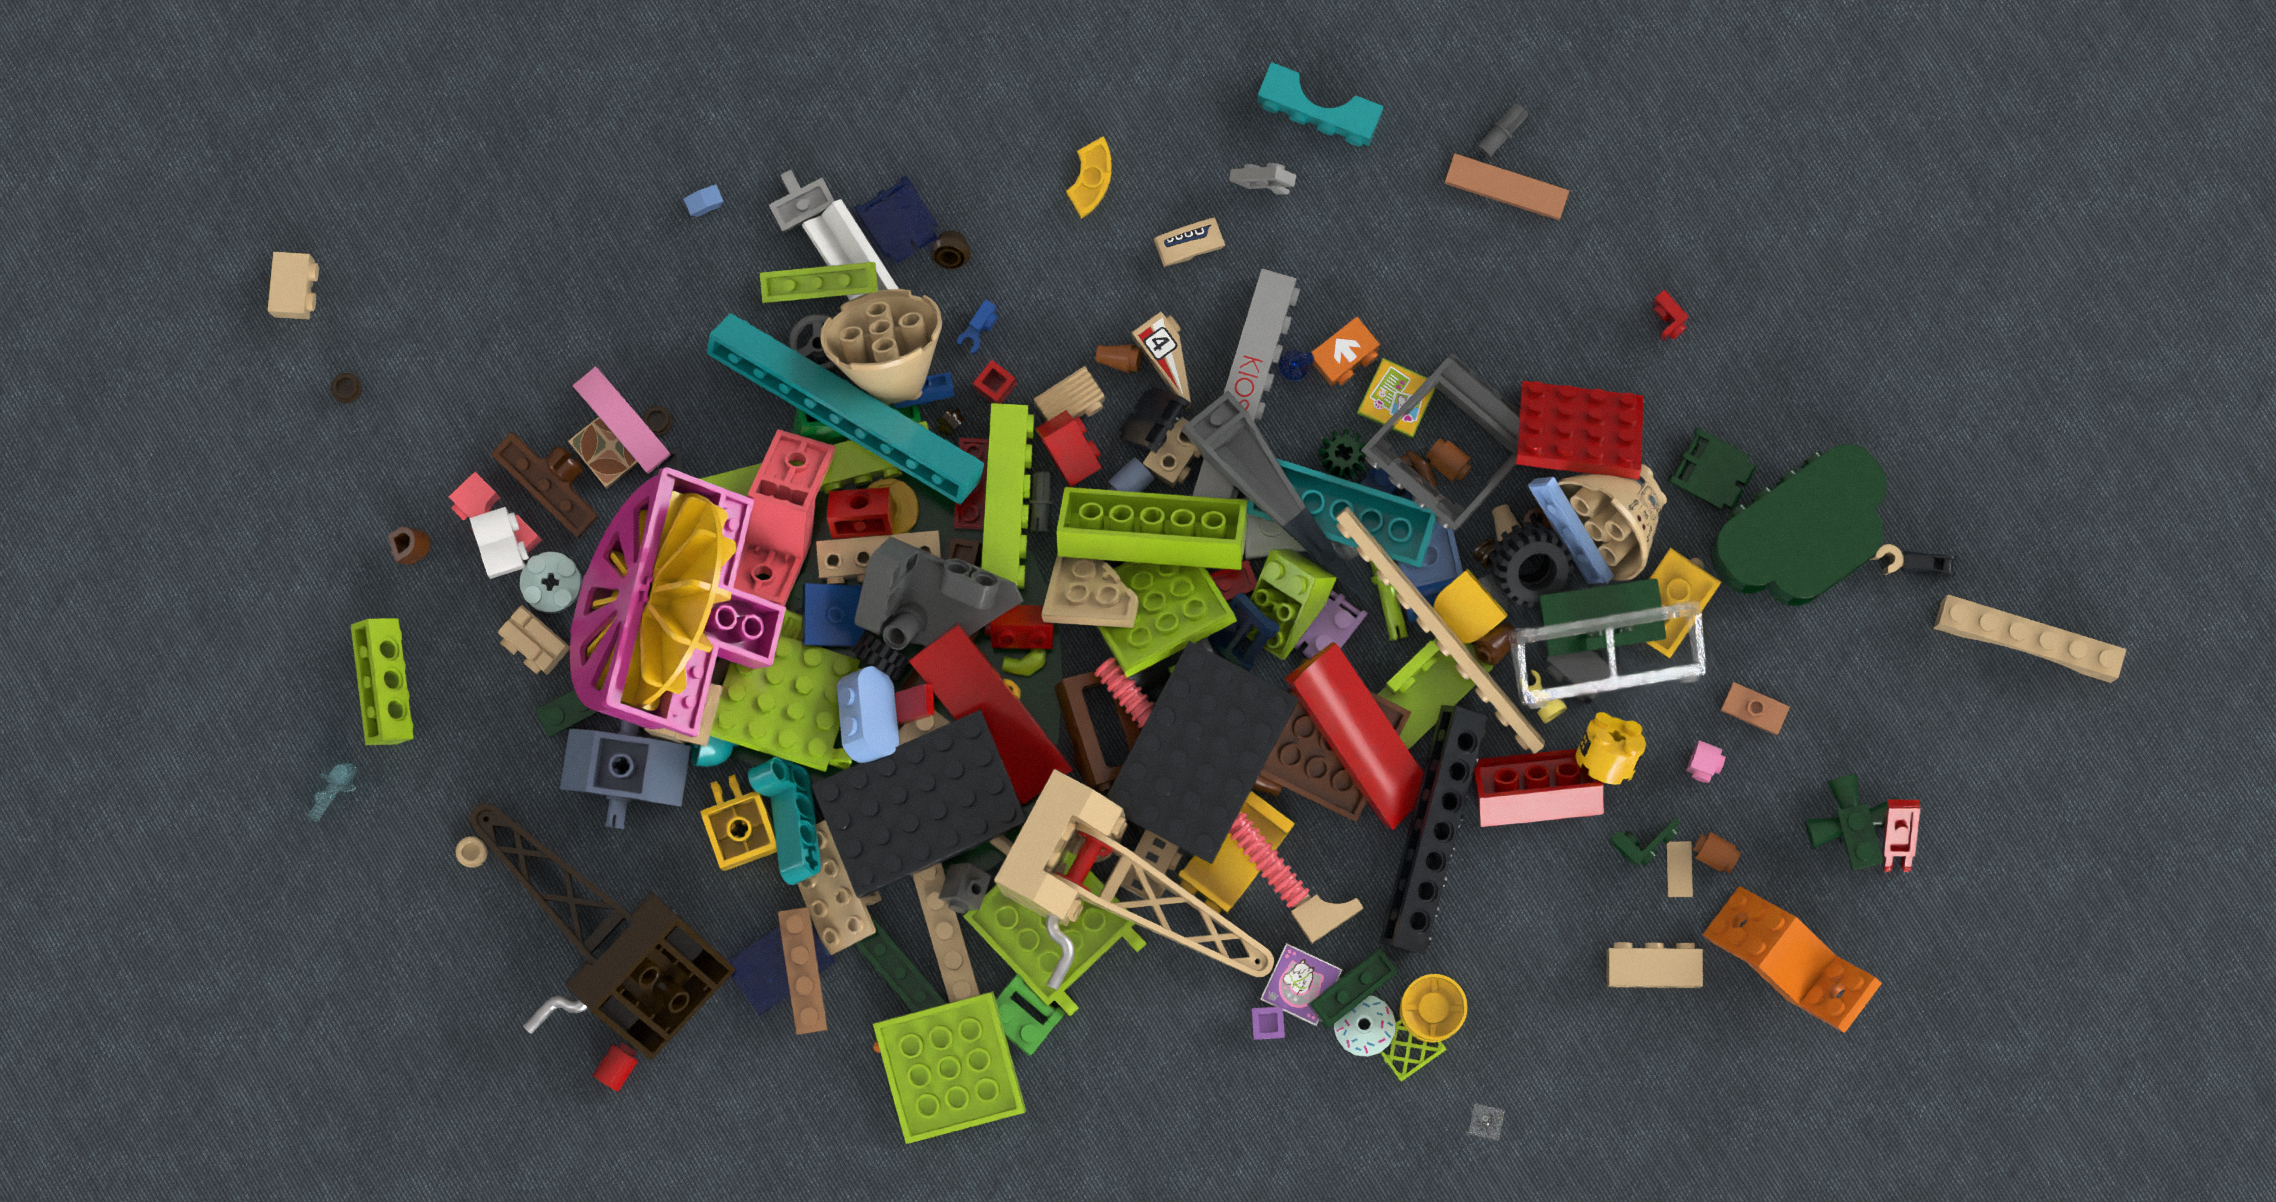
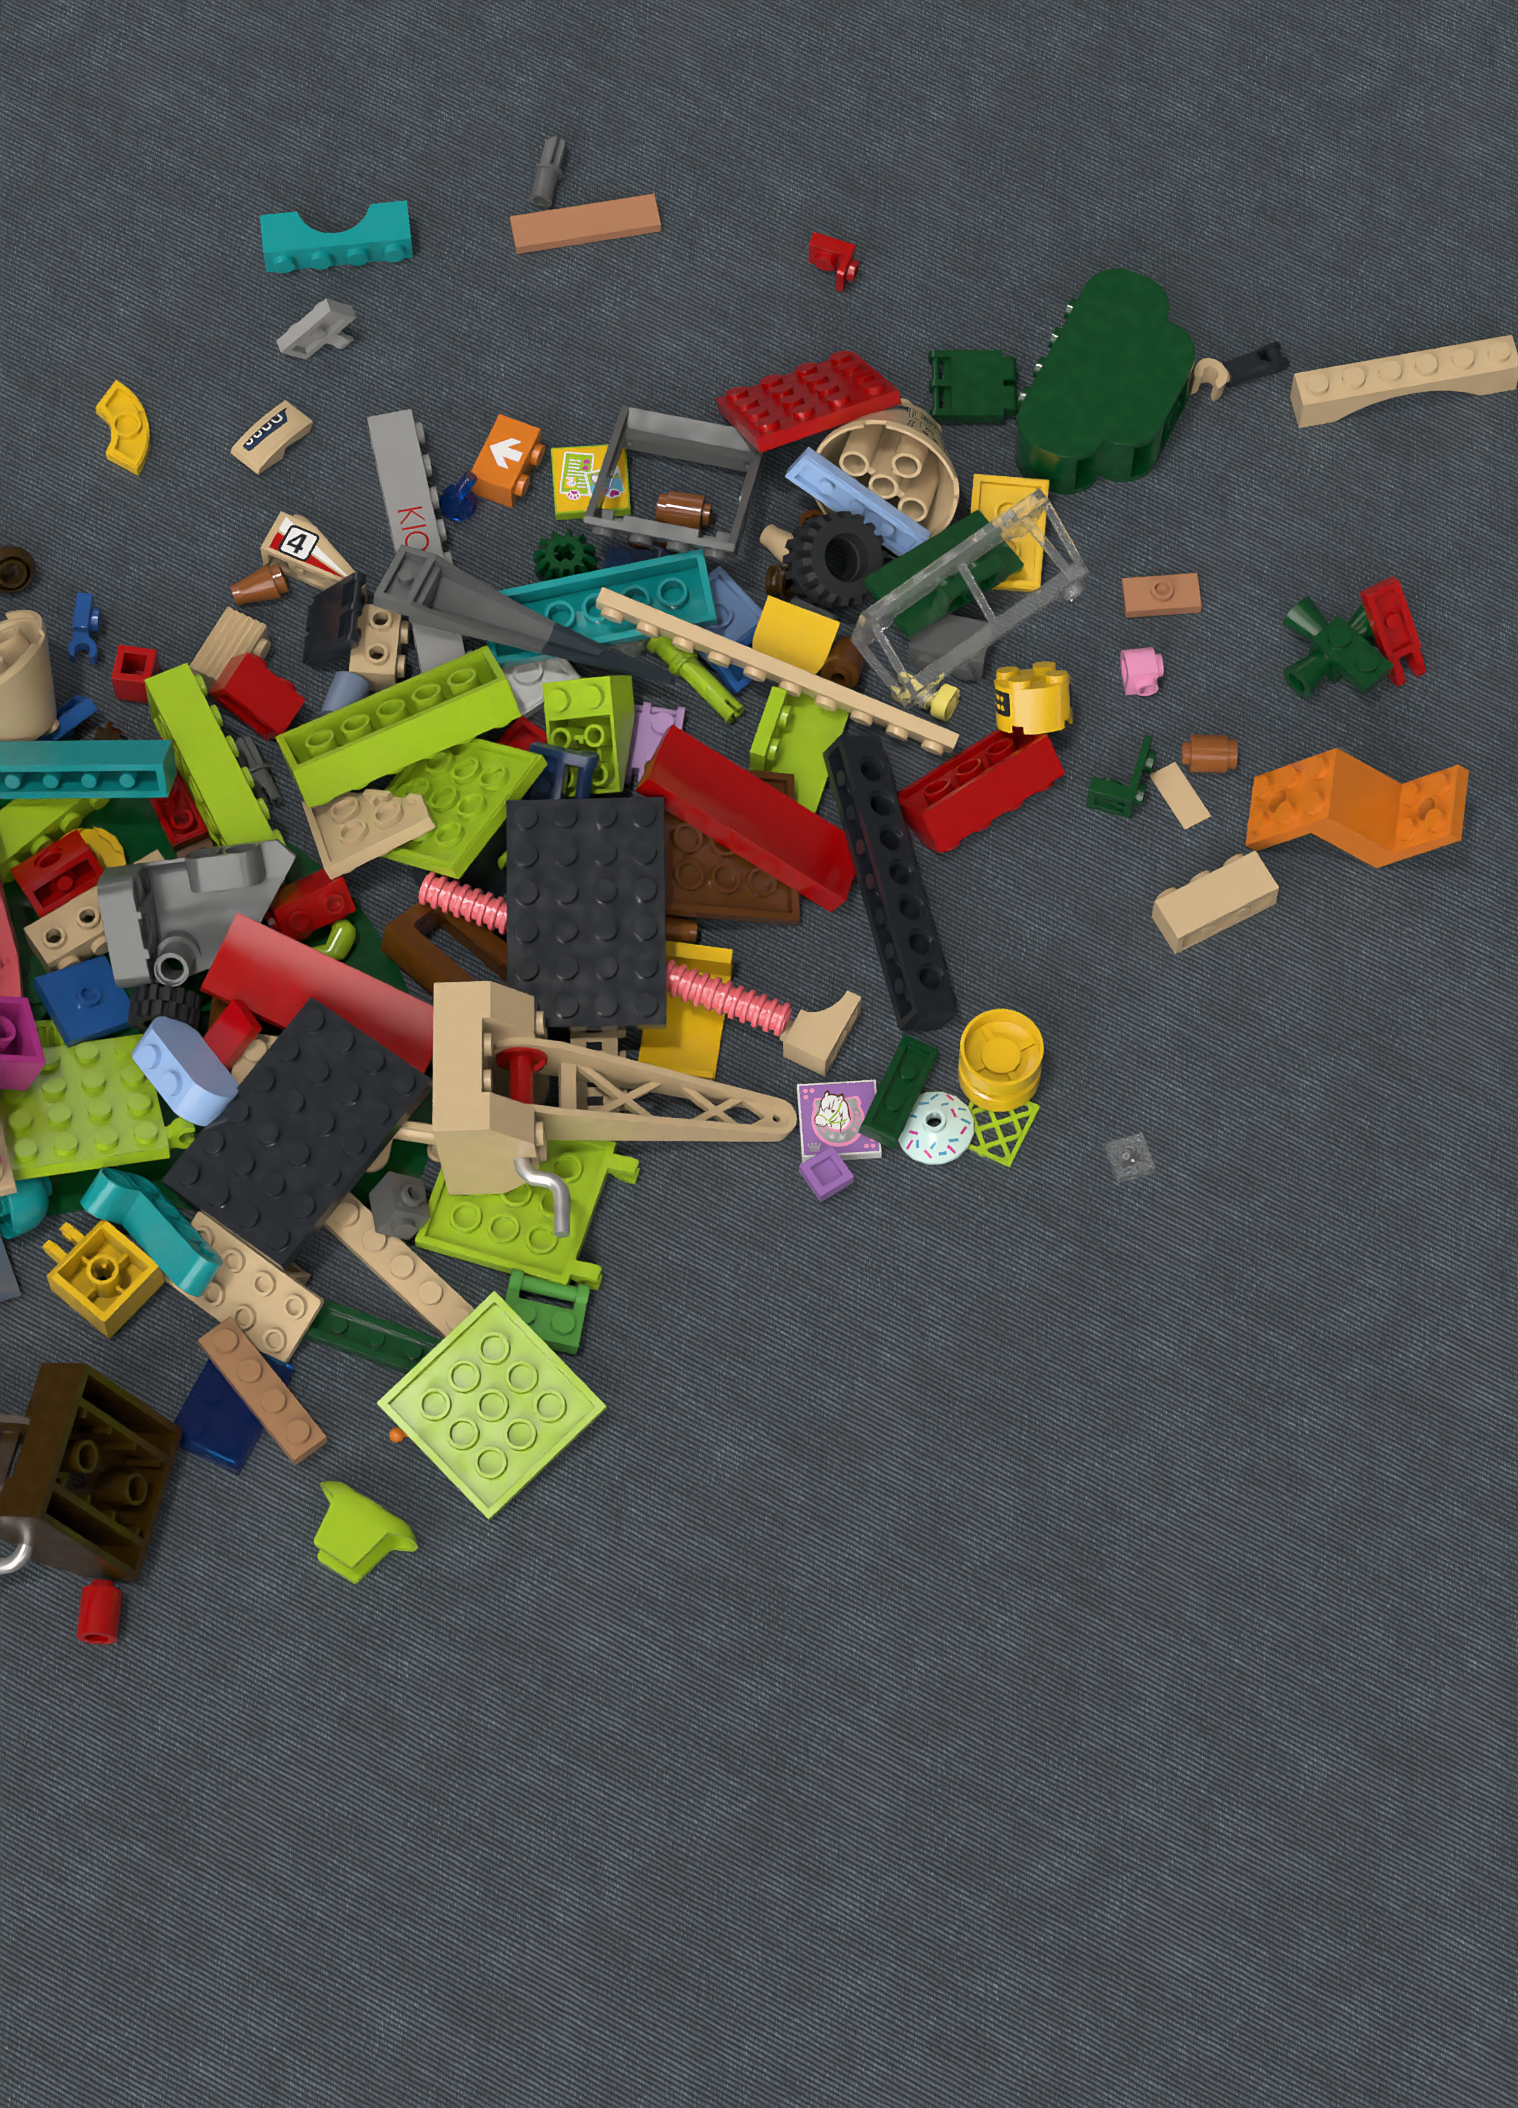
camera: 35 degrees left, 15 degrees down
(813, 1105) = (358, 1532): none -> lime piece

